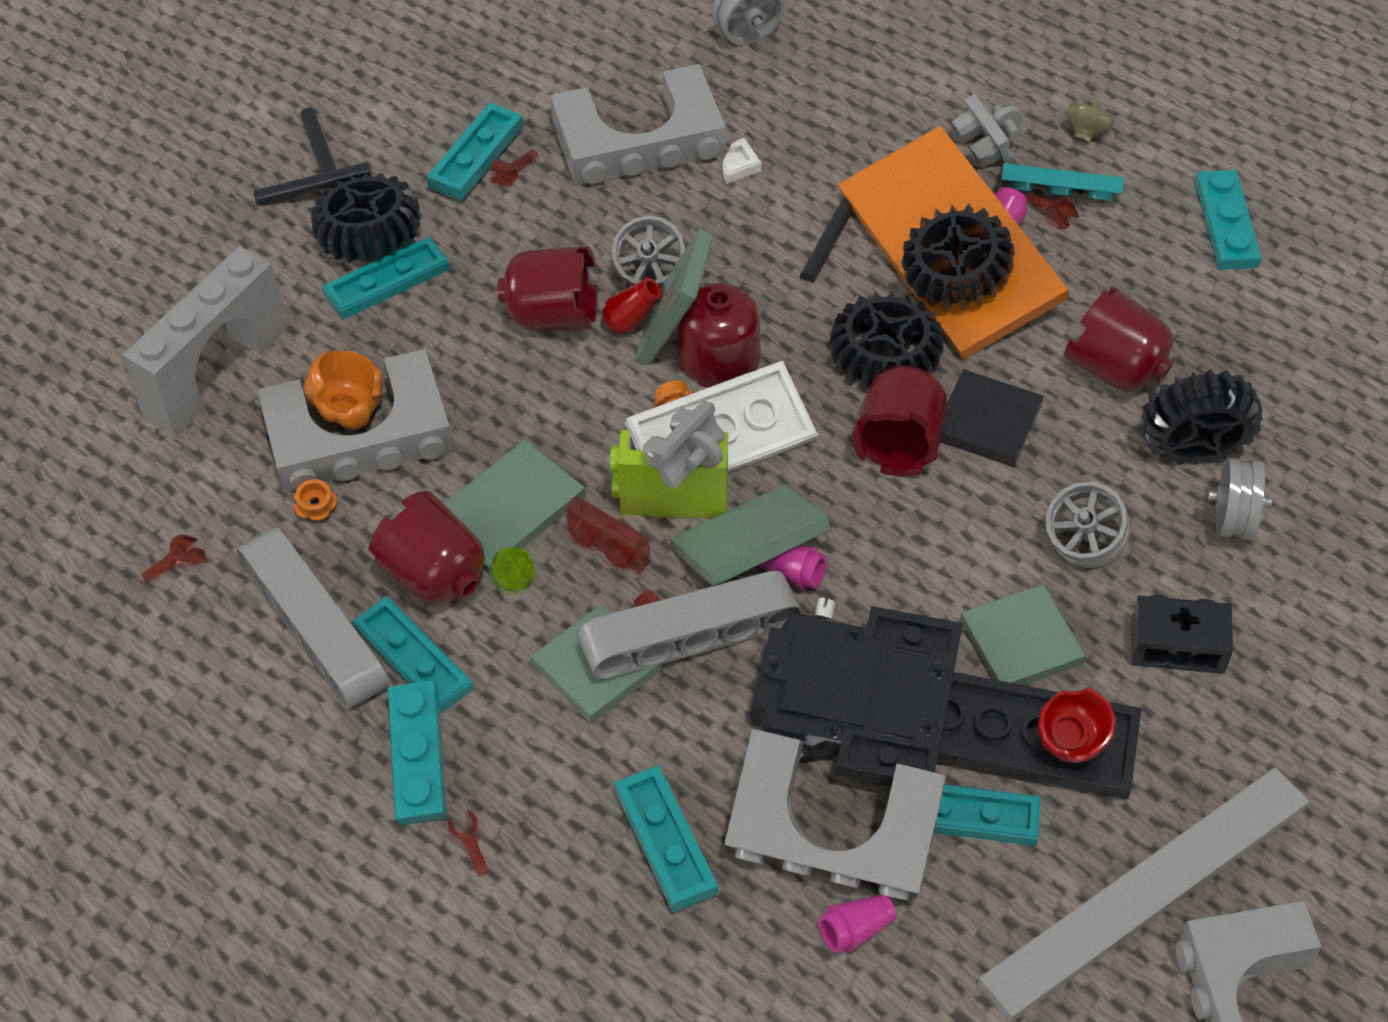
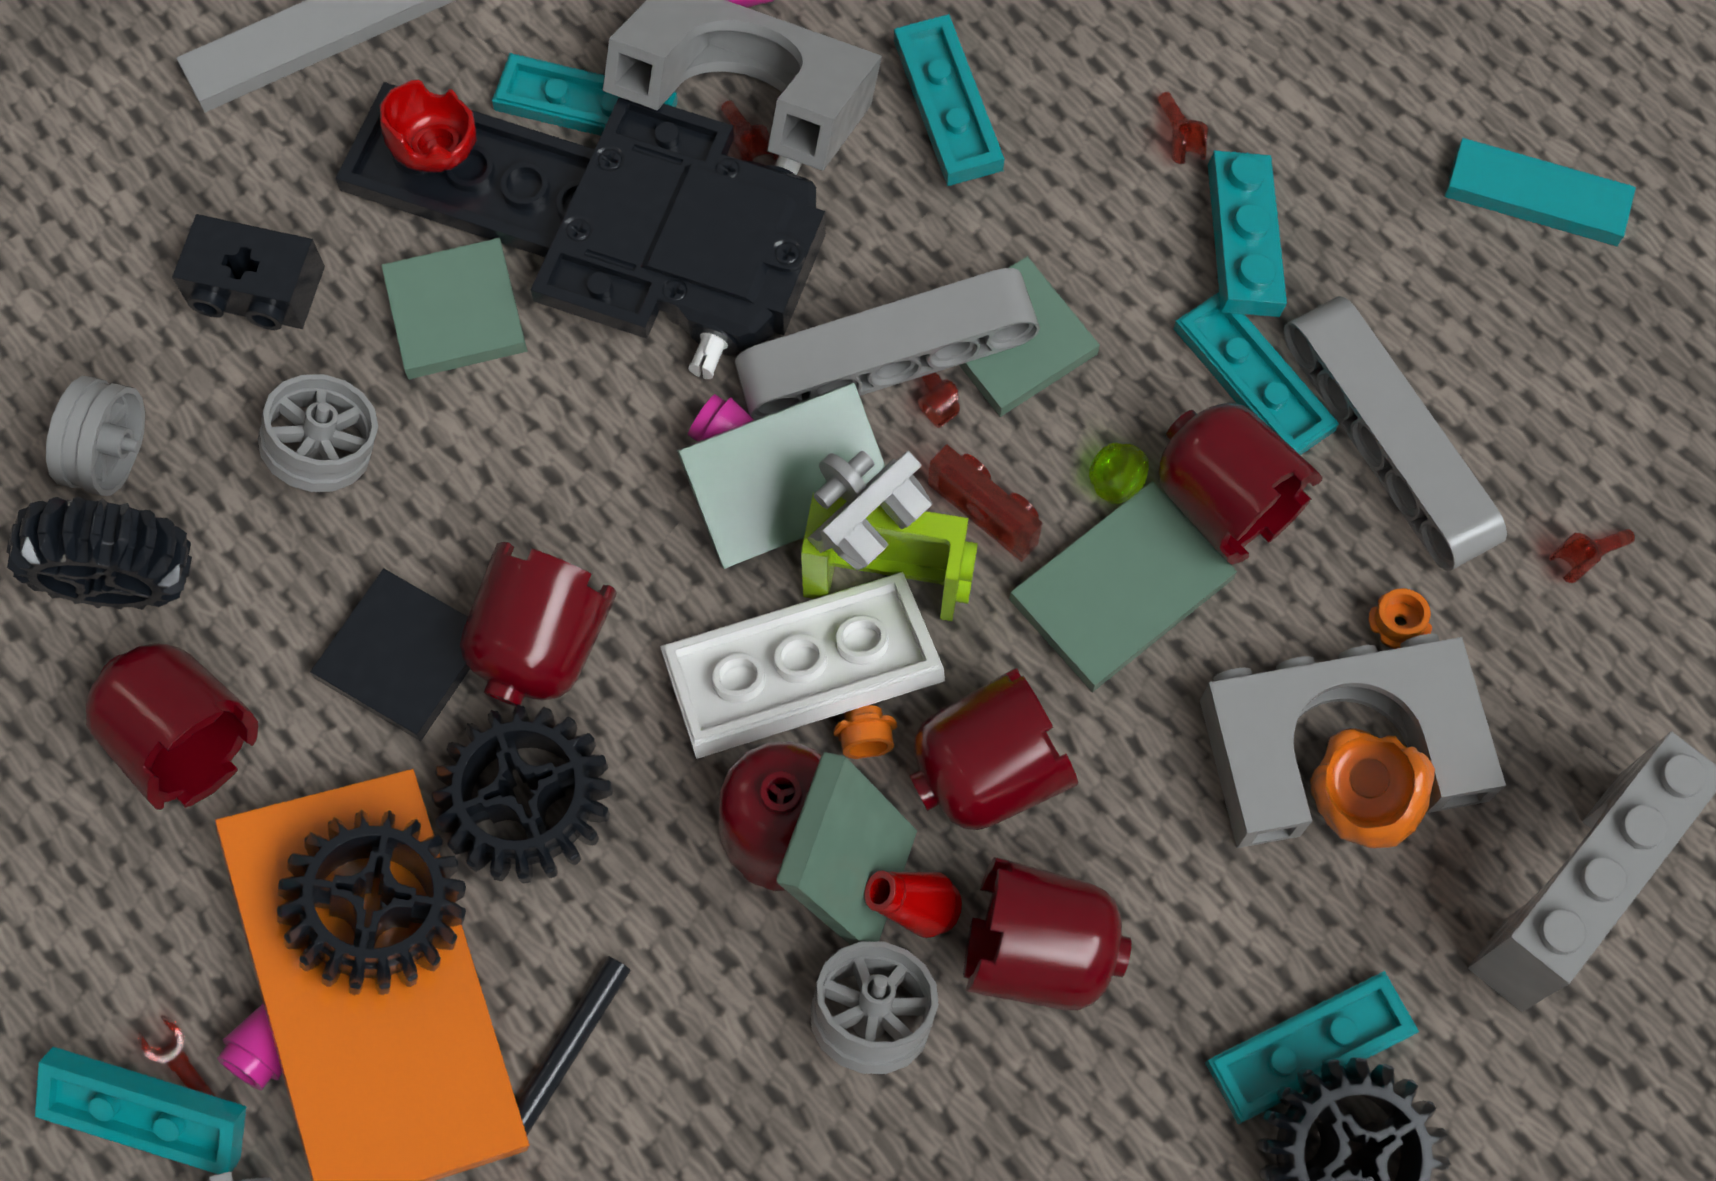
camera: 175 degrees left, 15 degrees up
(174, 821) = (1540, 192): none -> teal tile
(588, 377) = (989, 755): none -> dark red cylinder
(826, 791) = (750, 139): none -> clear red hand

